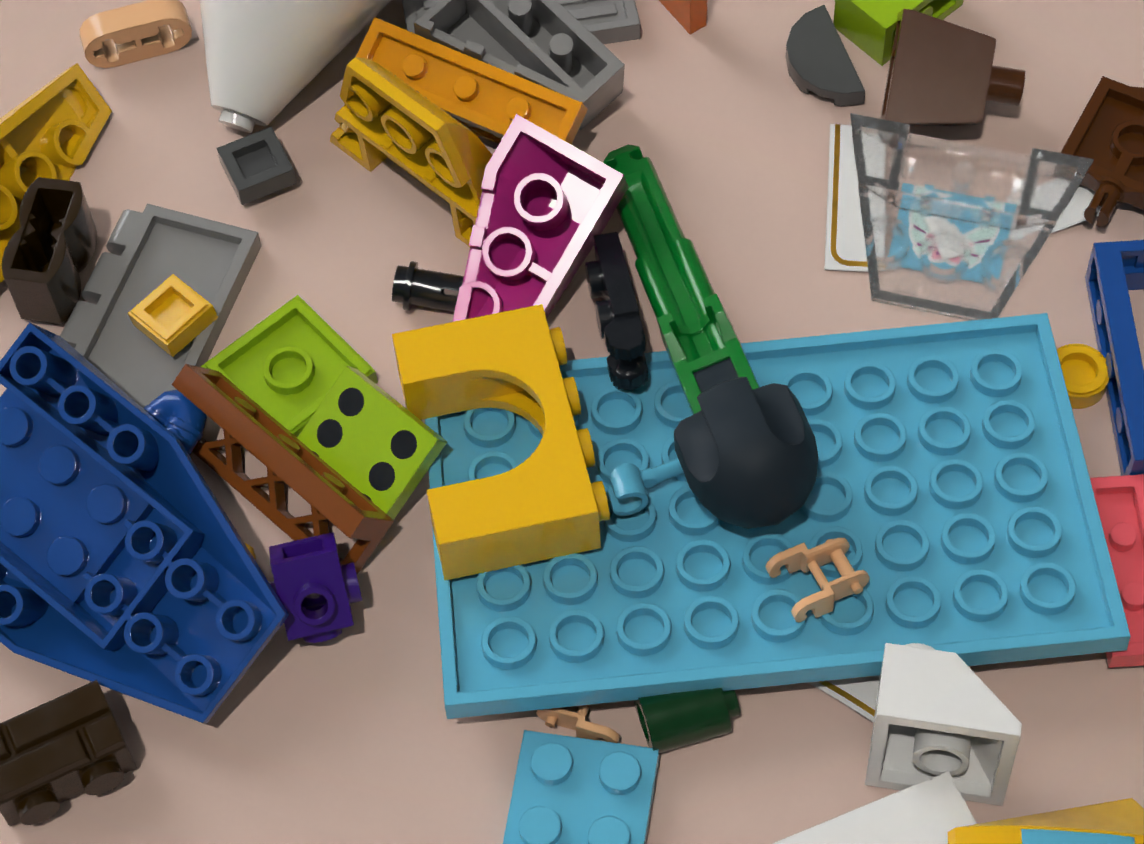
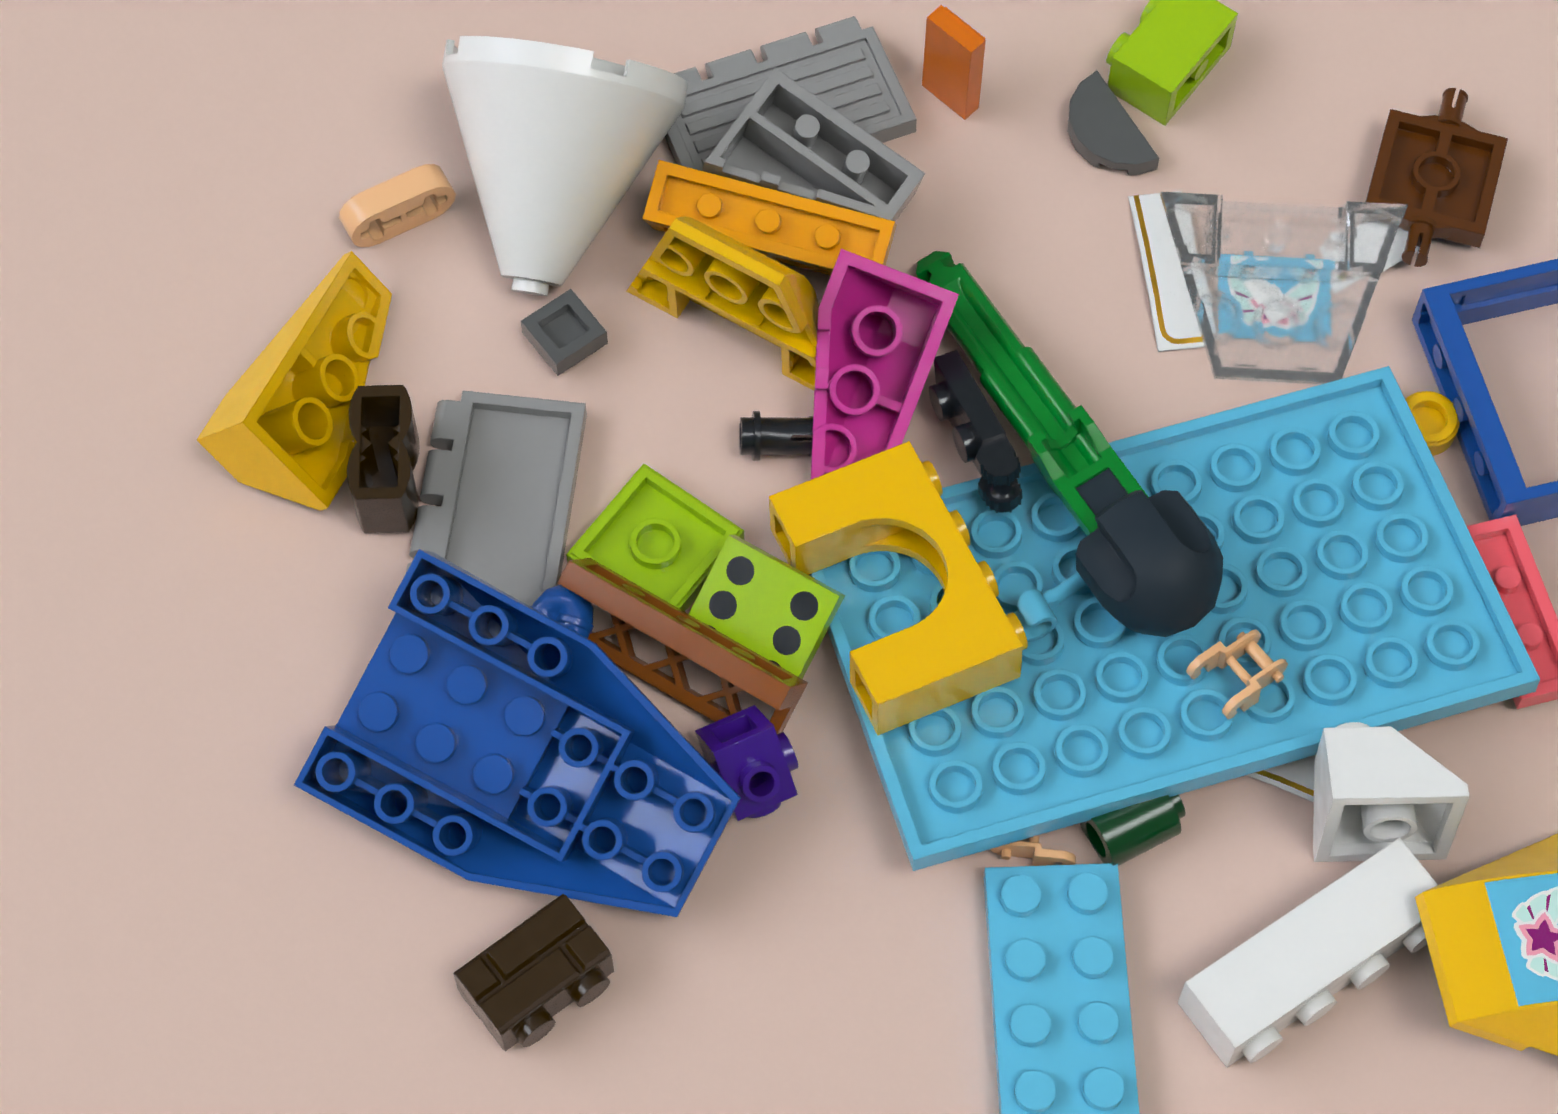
camera: 15 degrees left, 5 degrees up
(172, 315) = (525, 506): yellow tile -> none
(944, 74) = (1236, 134): reddish brown torso -> none

